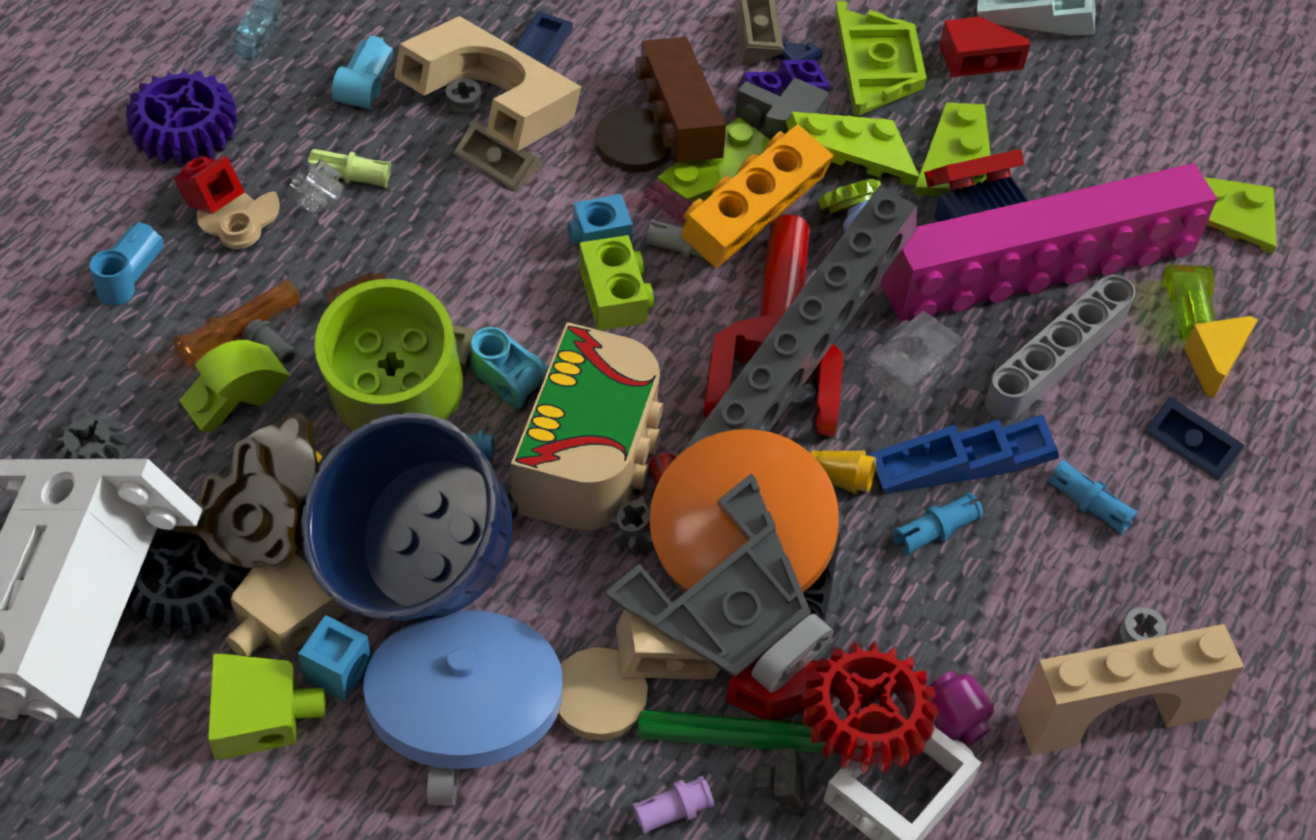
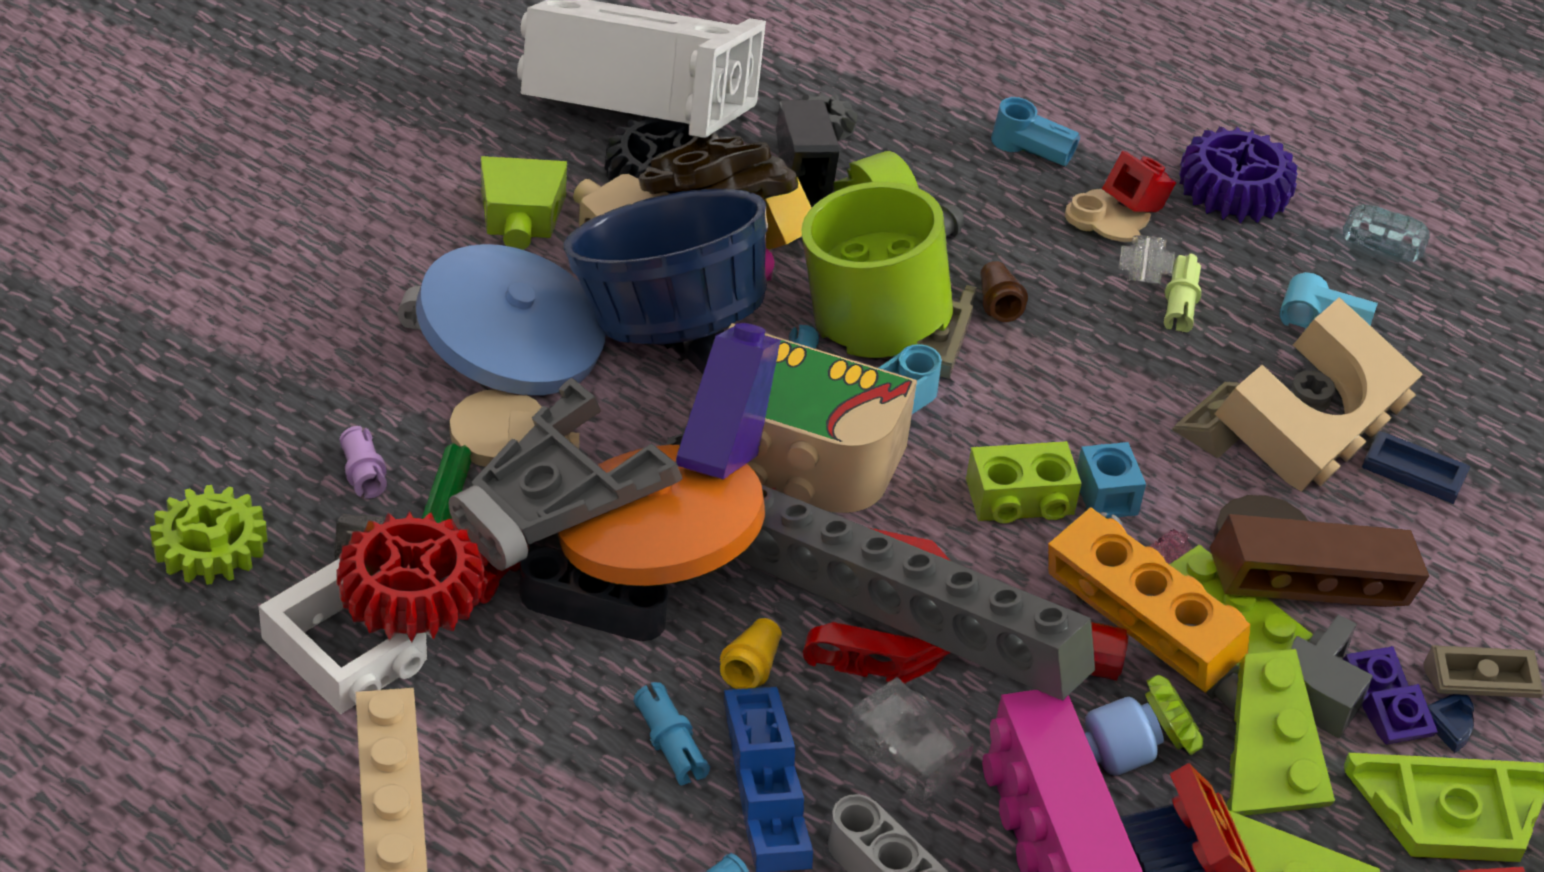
camera: 95 degrees right, 10 degrees down
(183, 434) = (808, 145): none -> black slope
(231, 326) = (952, 190): clear orange pin -> none
(335, 658) = (548, 228): dark azure brick -> none
(662, 440) = (730, 402): none -> dark purple slope
(961, 707) = (433, 687): magenta head -> none

